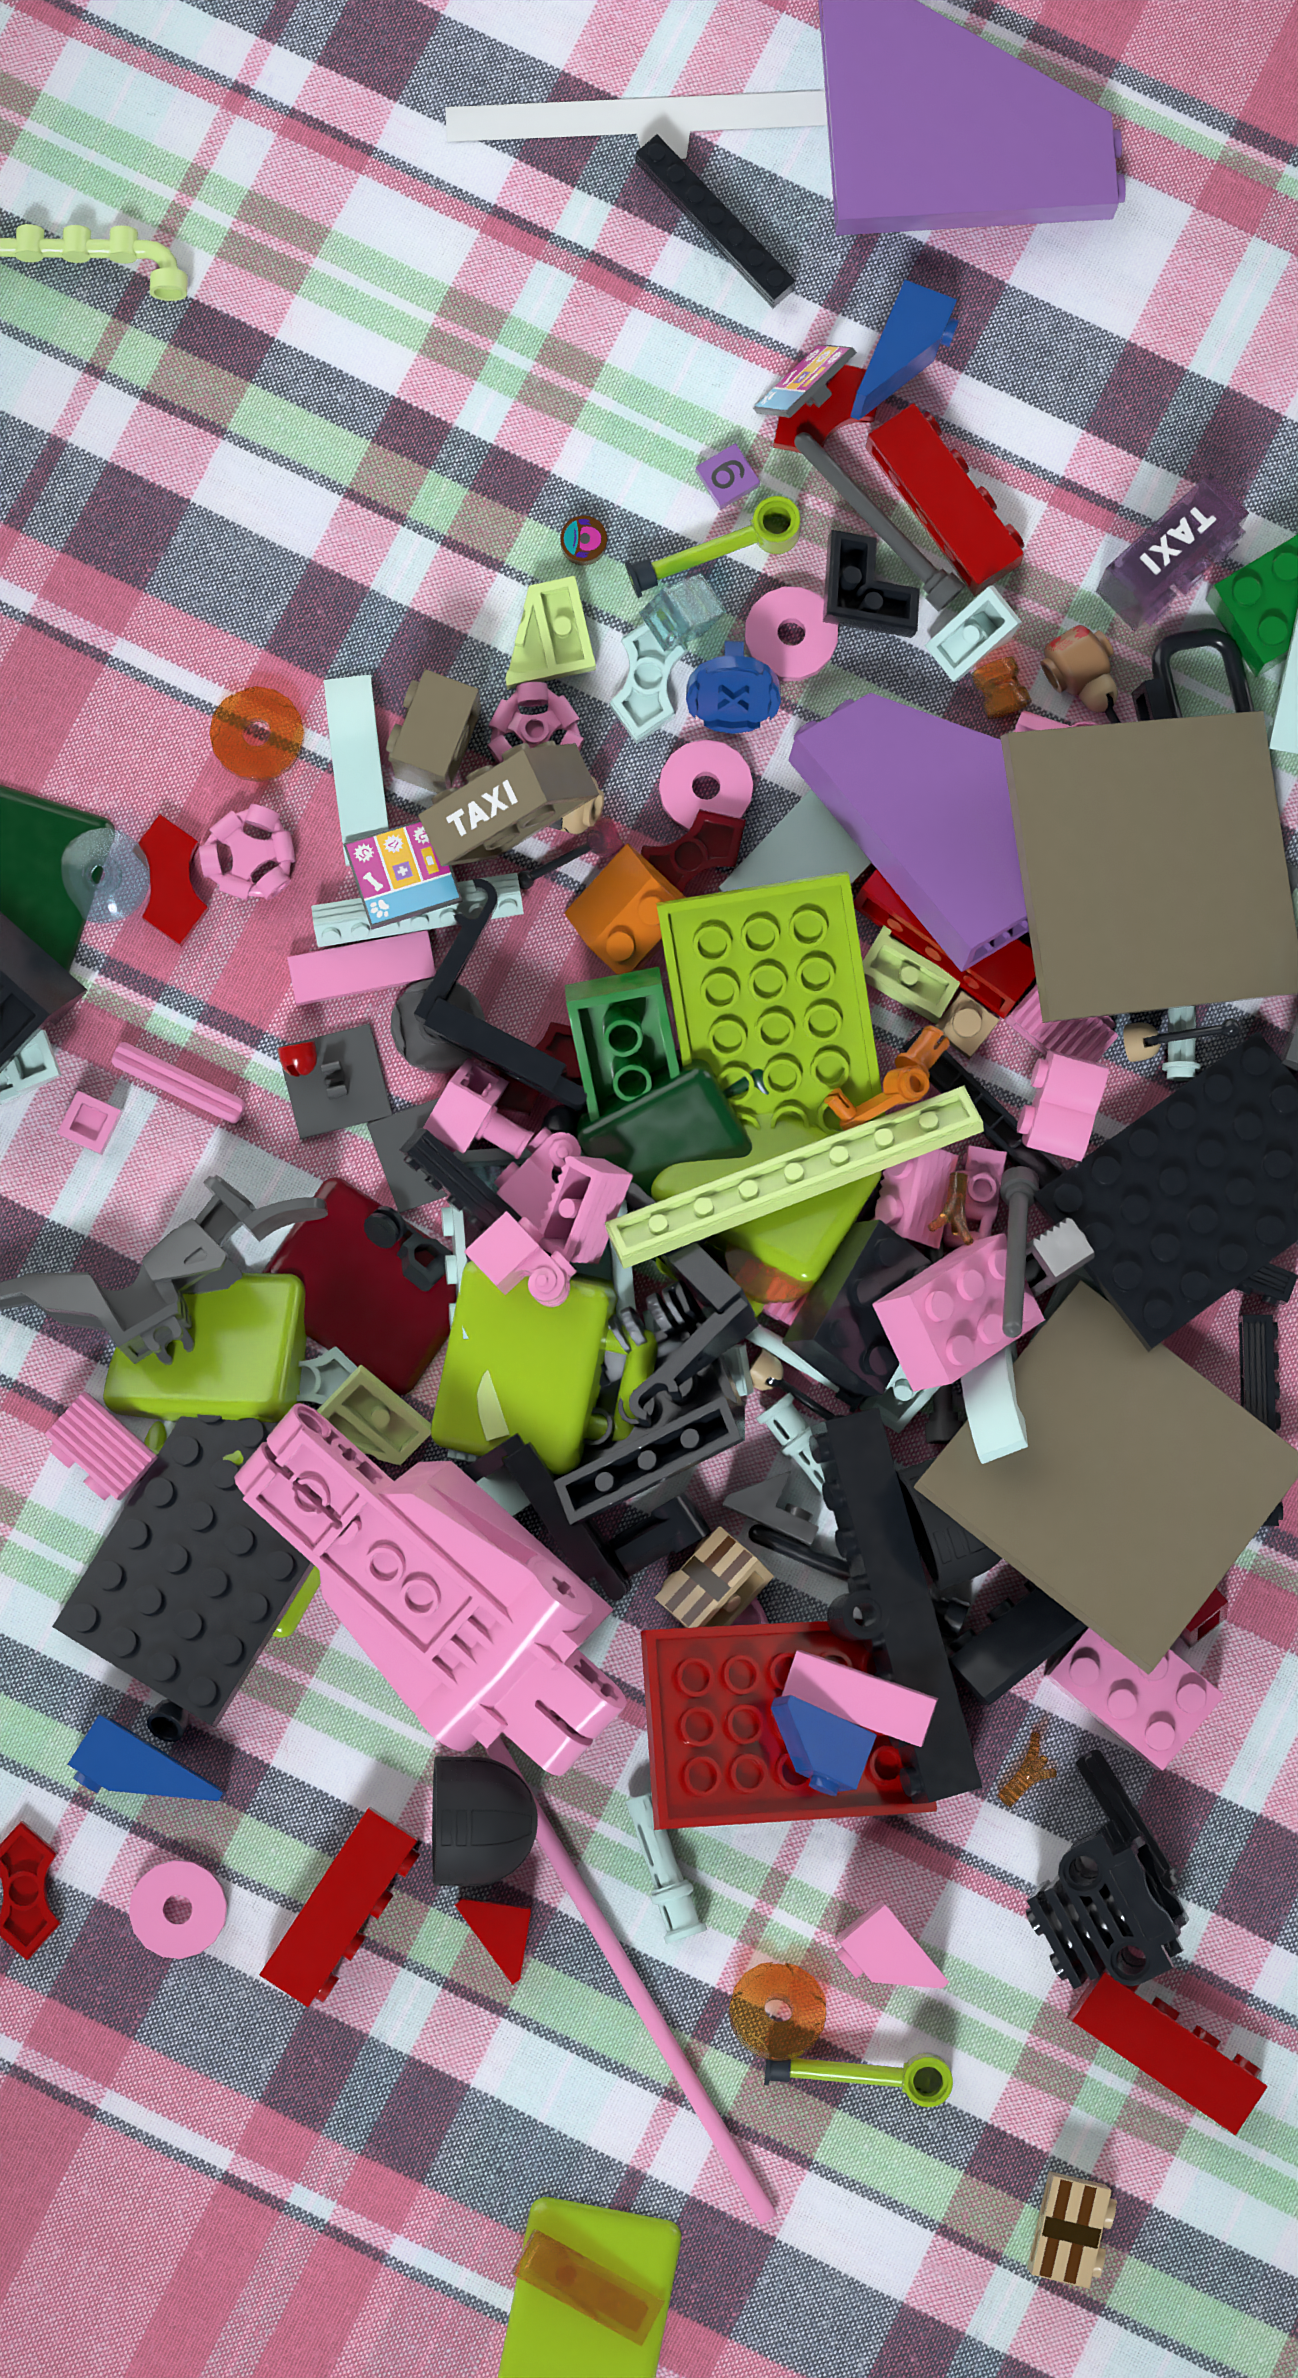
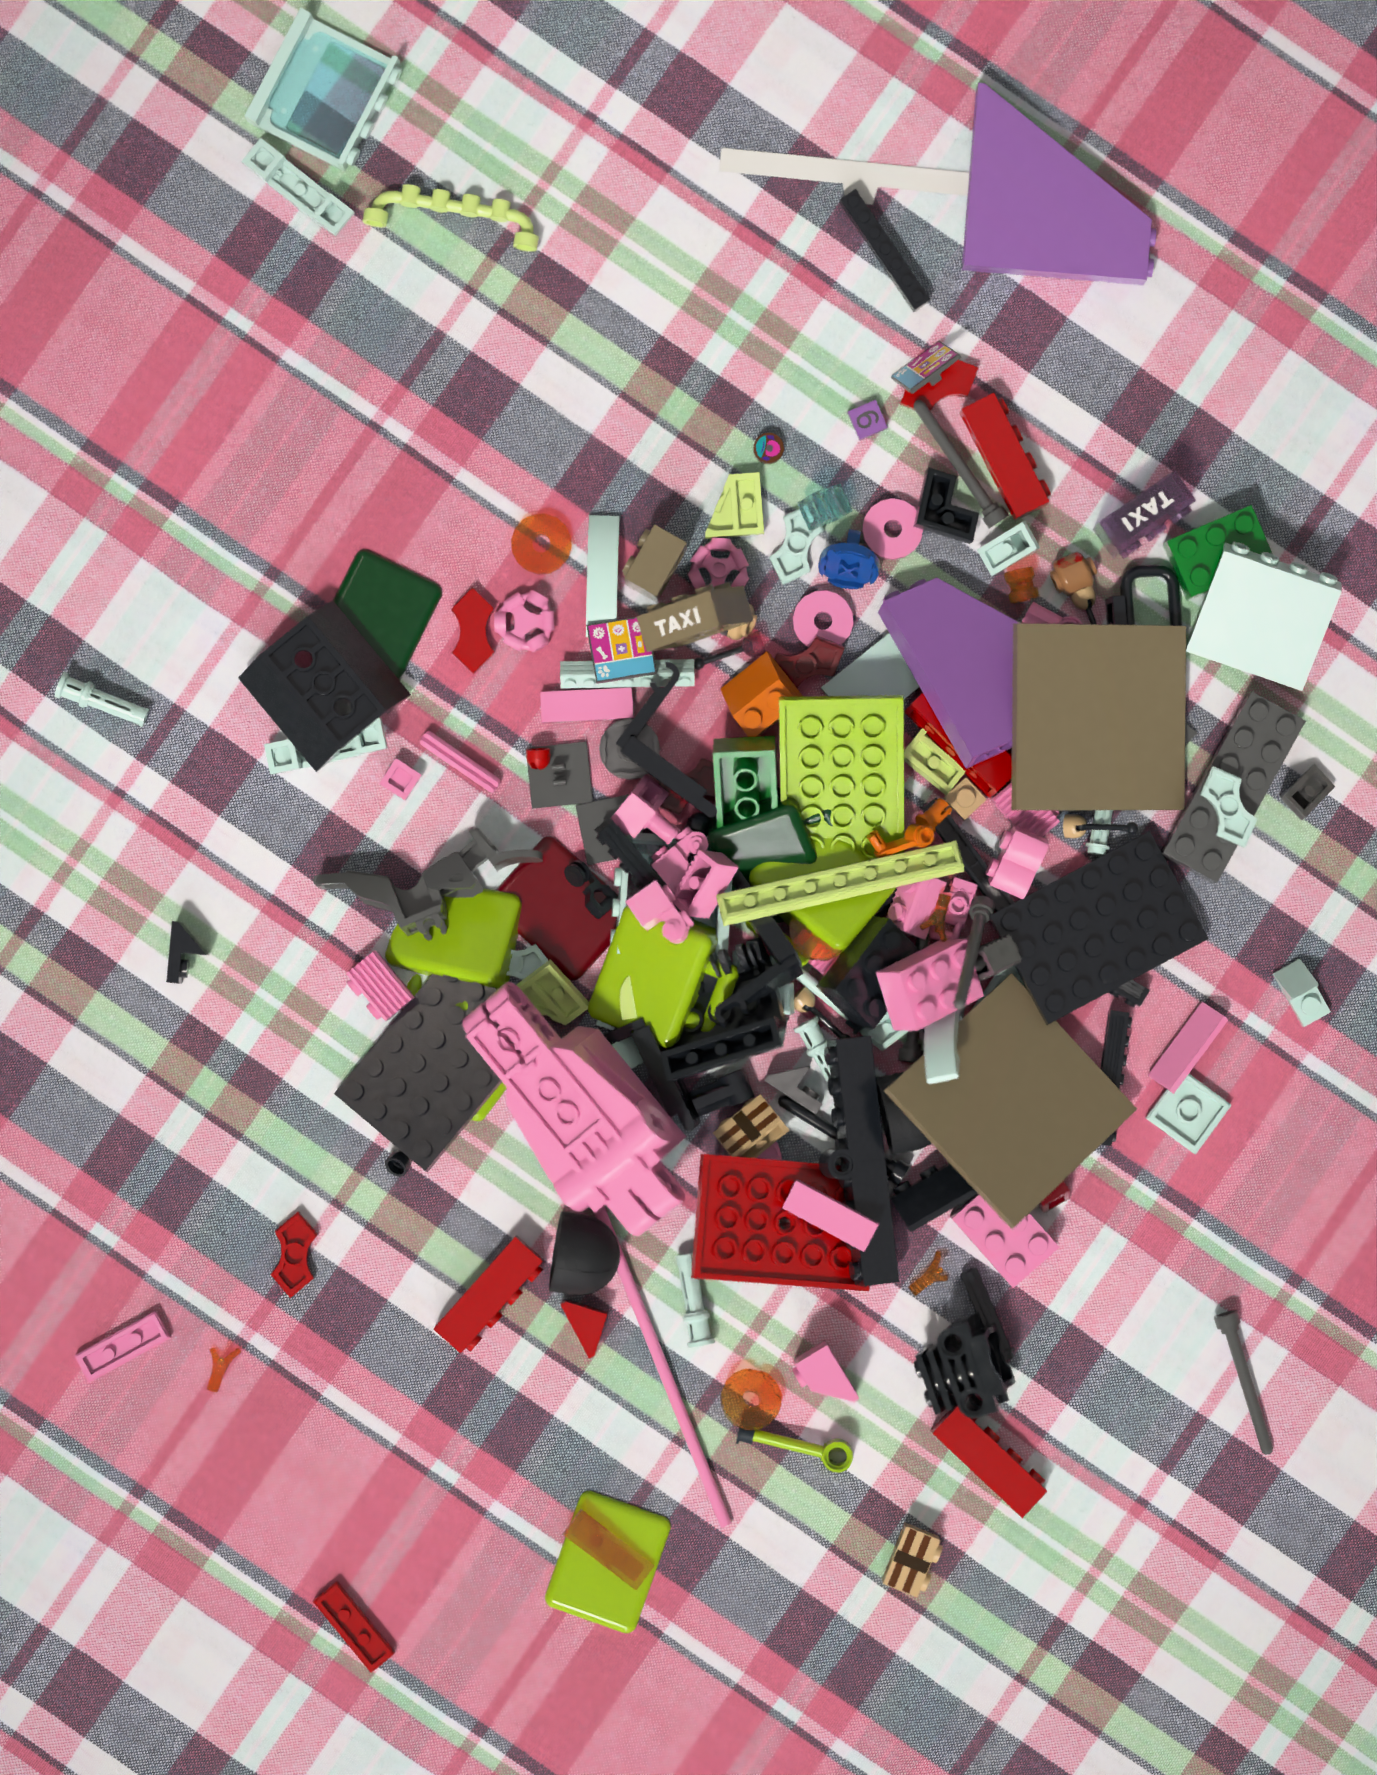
camera: 15 degrees right, 5 degrees up
(124, 880) = (445, 620): clear light blue dish -> none
(129, 1764) = (371, 1187): blue slope -> none
(149, 1915) = (370, 1286): bright pink tile -> none
(646, 574) = (805, 477): lime piece -> none
(822, 1745) = (803, 1241): blue slope -> none
(907, 345) = (996, 352): blue slope -> none

